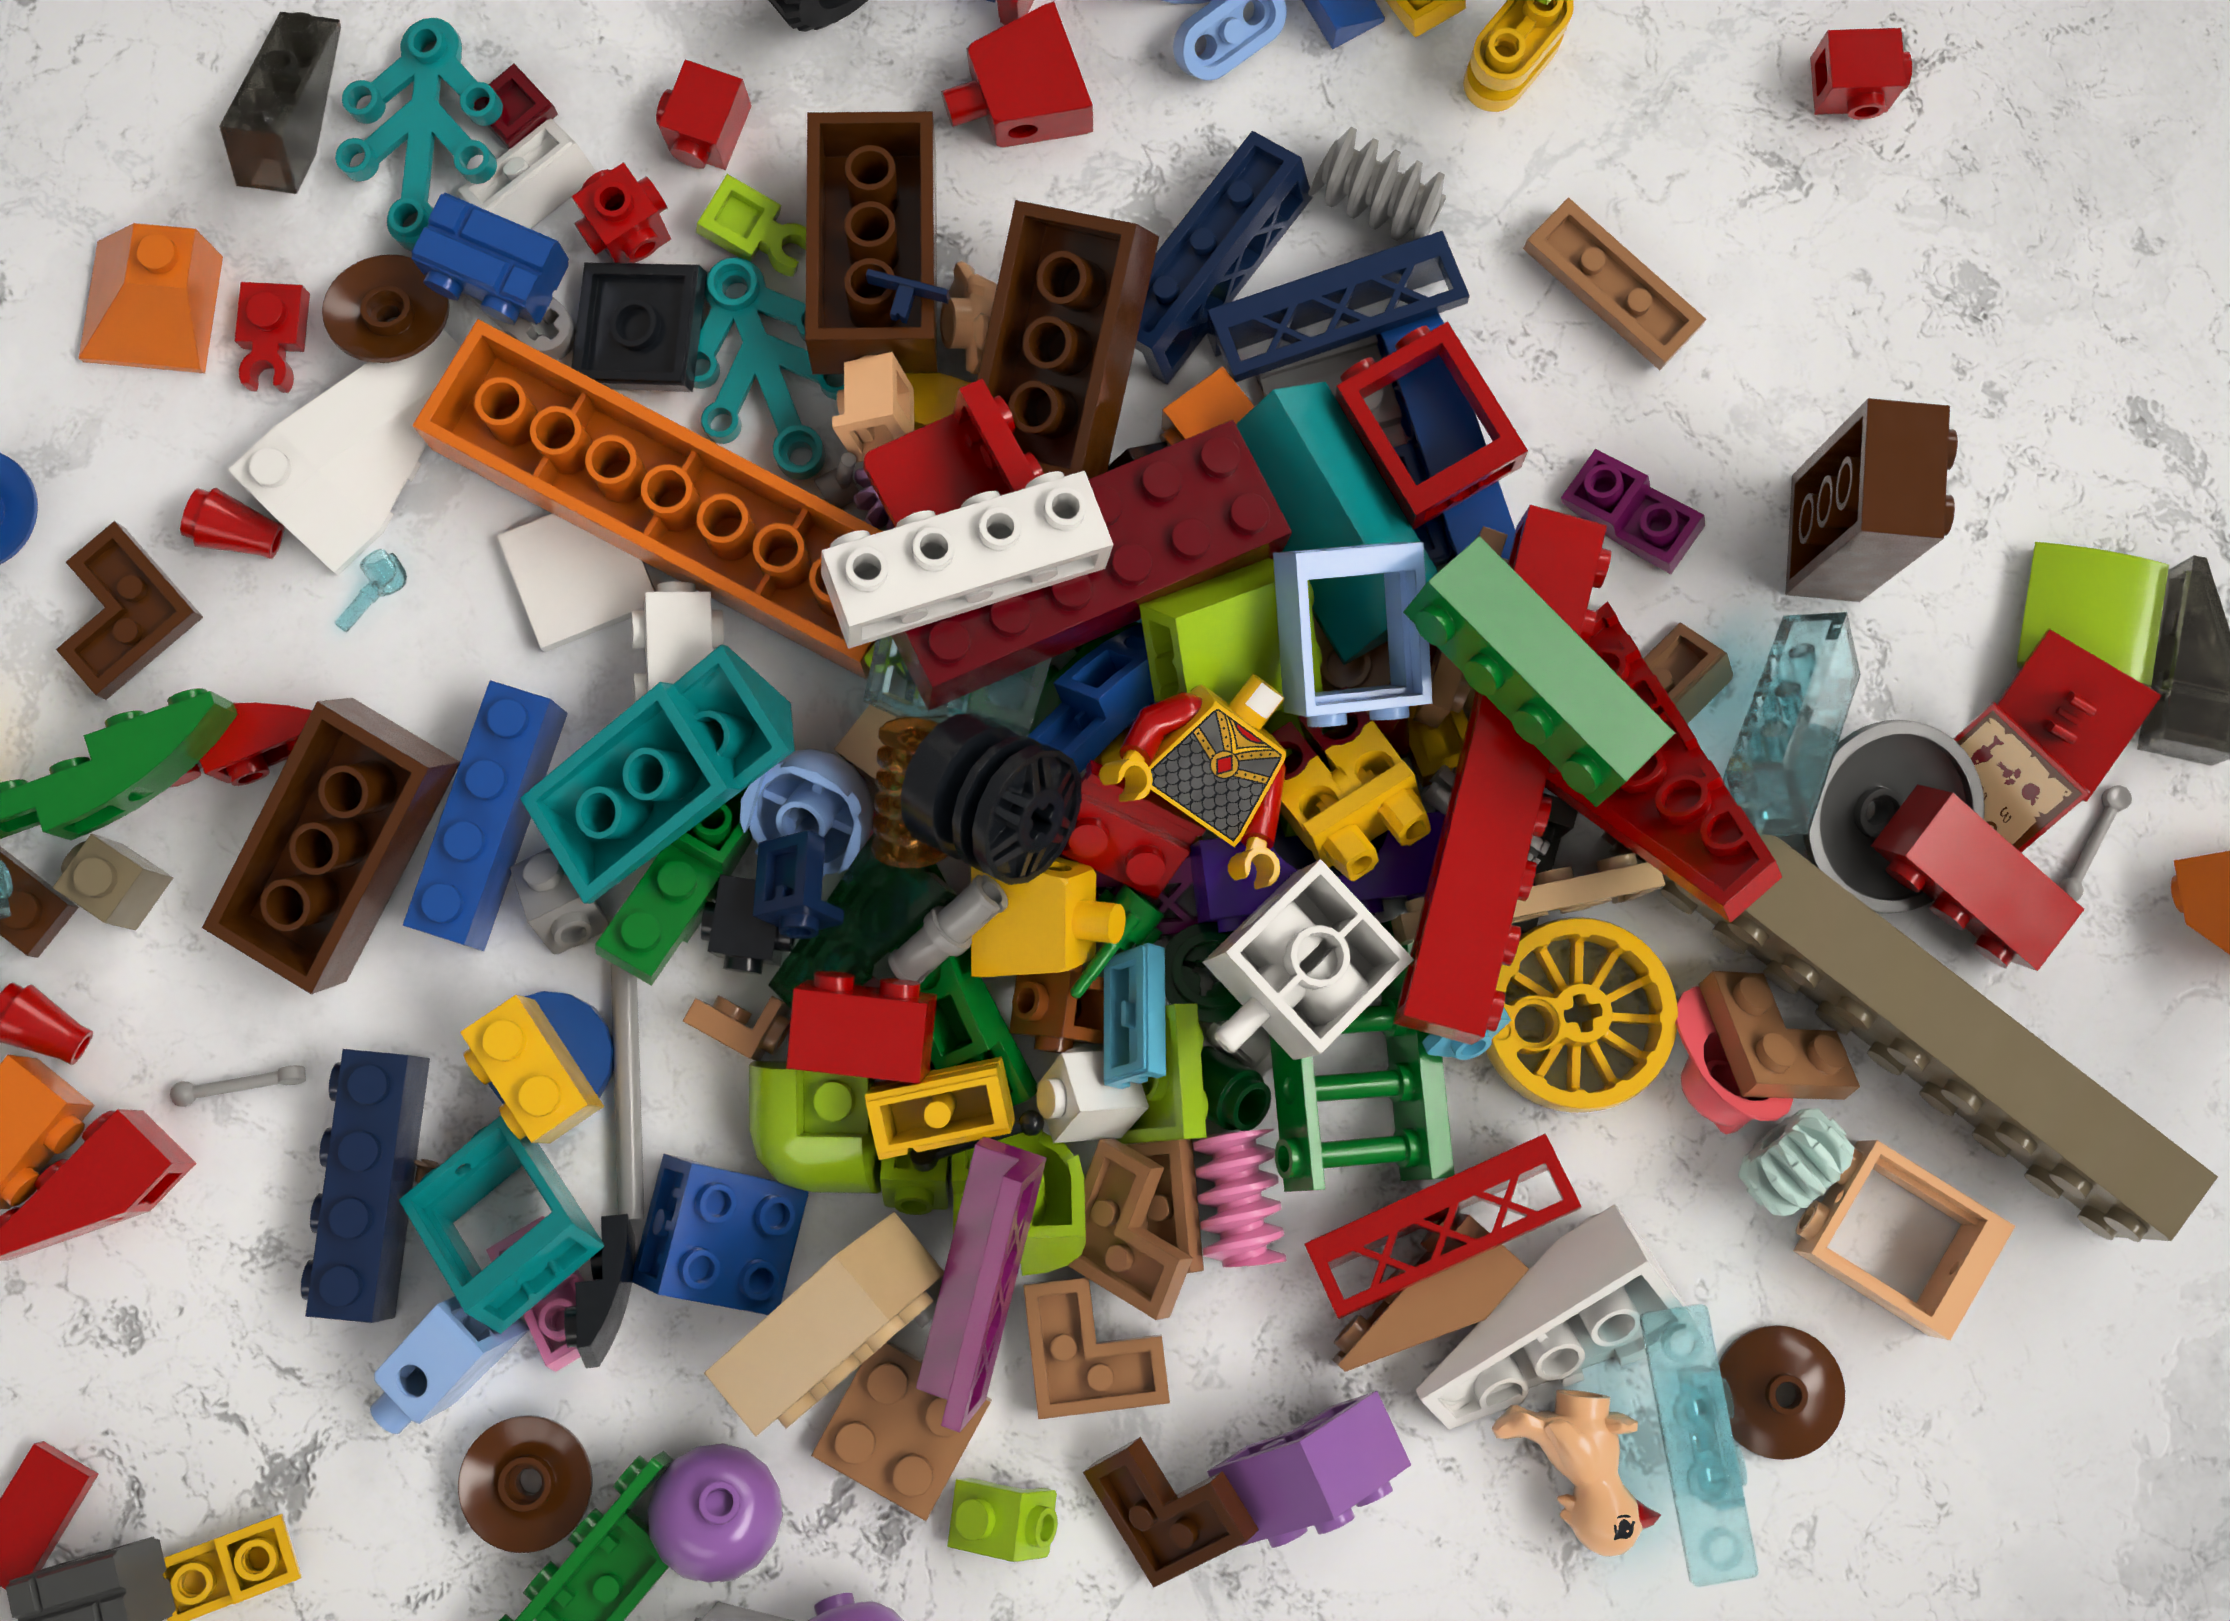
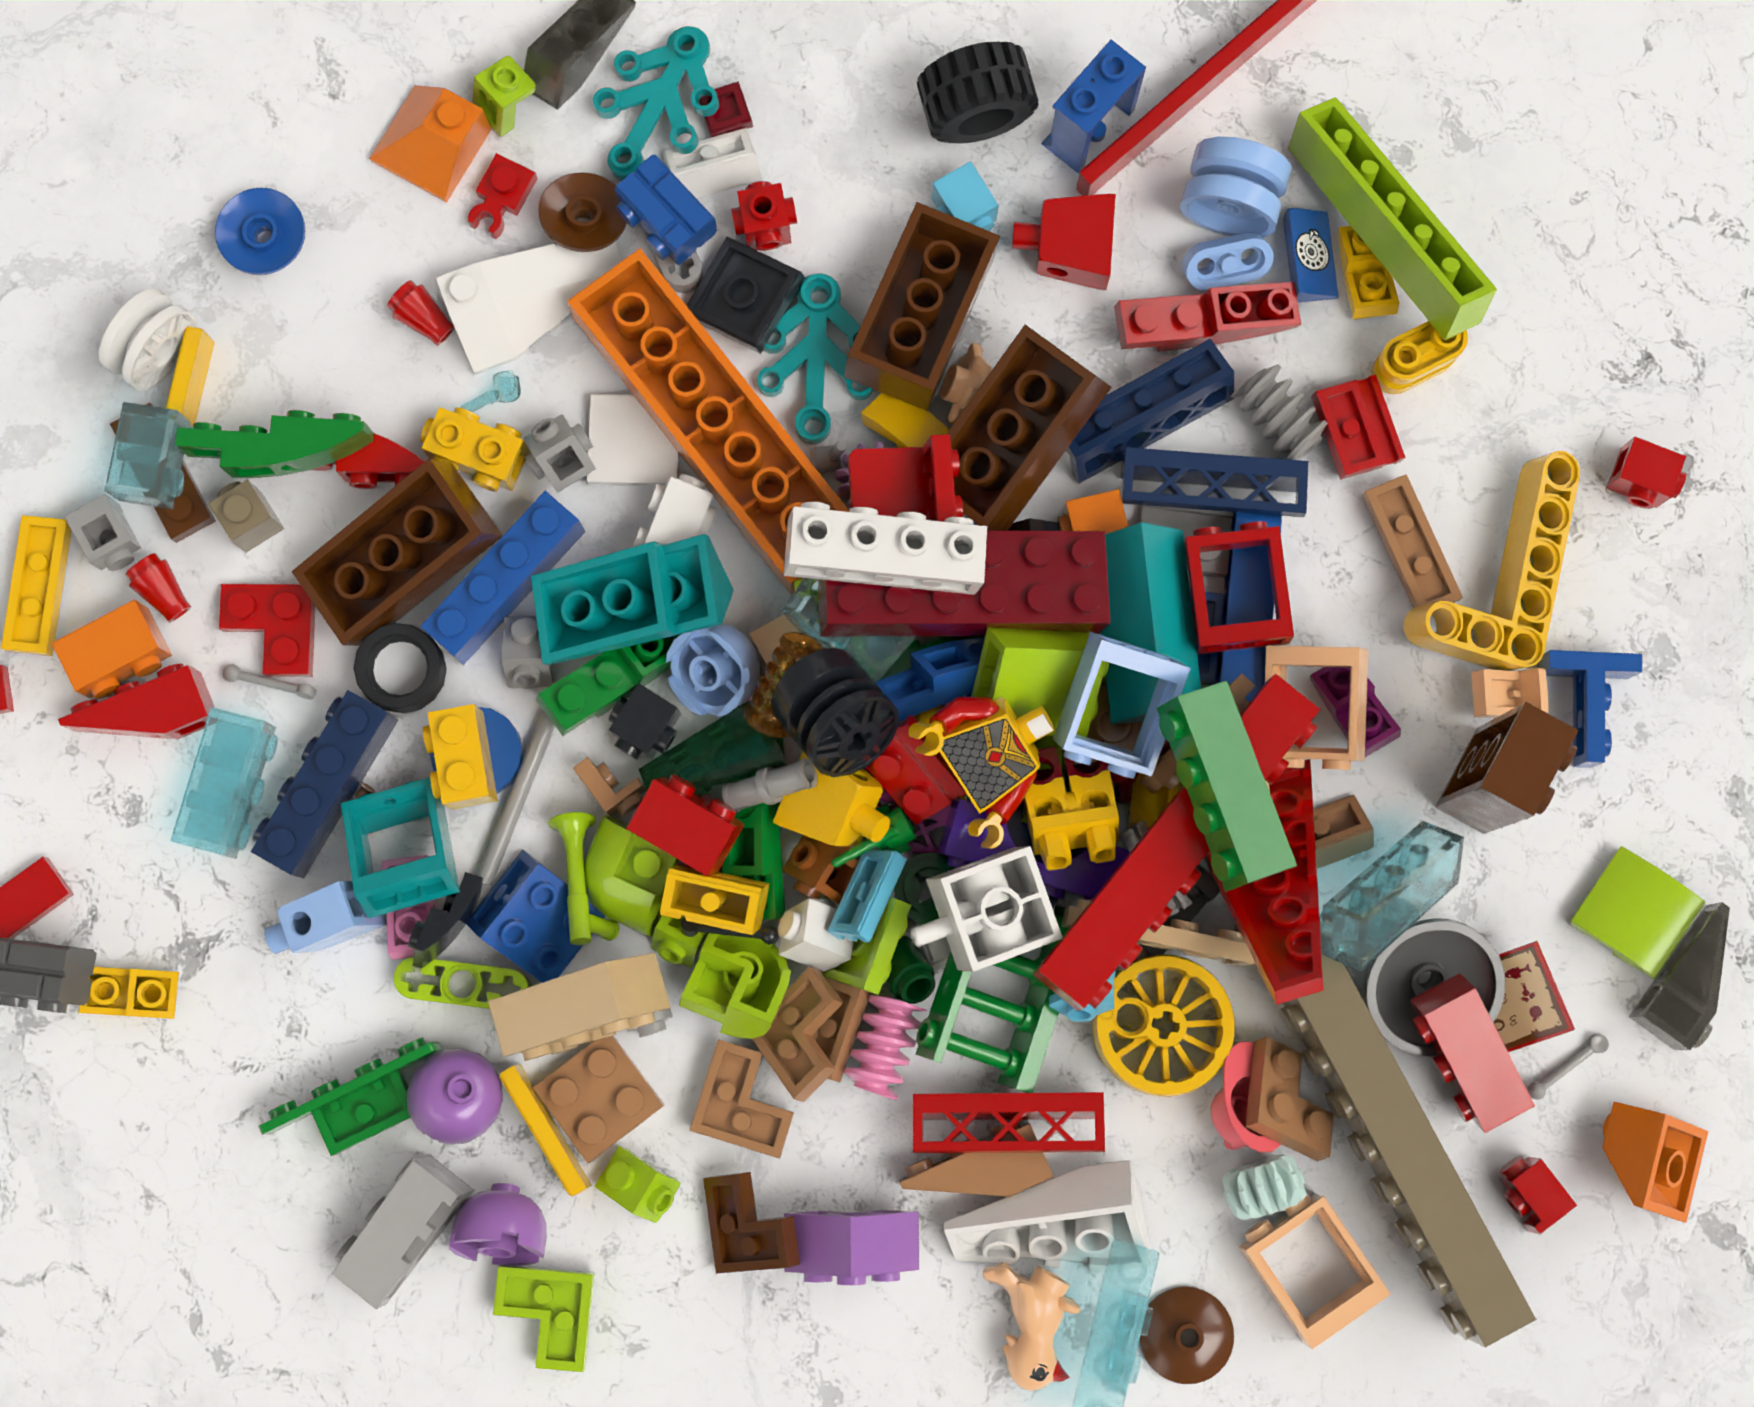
camera: 25 degrees right, 0 degrees up
(140, 613) = (336, 348): reddish brown plate -> none
(208, 200) = (498, 92): none -> lime bracket
(214, 989) = (282, 614): none -> red plate
(235, 1241) = (225, 783): none -> clear light blue brick
(352, 985) = (371, 648): none -> black tyre
(377, 667) = (474, 448): none -> yellow brick
(487, 624) = (559, 452): none -> light grey brick
(493, 1492) = (319, 1016): reddish brown dish -> none
(619, 1392) = (426, 992): none -> lime beam
(703, 115) = (847, 171): red brick -> none
(746, 222) = (844, 254): lime plate -> none
(782, 1215) = (572, 829): none -> lime piece
(791, 886) = (681, 712): dark blue bracket -> none
(852, 1504) = (545, 1130): none -> yellow tile
(866, 83) = (966, 197): none -> medium azure brick
(873, 404) = (874, 417): light nougat brick -> none
(906, 292) = (927, 352): dark blue piece -> none
(980, 1277) = (691, 1020): magenta fence -> none
(1250, 96) = (1218, 314): none -> slope
(1484, 165) = (1358, 427): none -> red plate
(1579, 461) = (1342, 657): none -> light nougat window
(1775, 263) = (1516, 577): none -> yellow beam
(1812, 412) = (1503, 690): none -> light nougat bracket
(1909, 363) = (1591, 695): none -> blue bracket
(2077, 707) = (1594, 971): red piece -> none
(2130, 1018) = (1535, 1193): none -> red brick

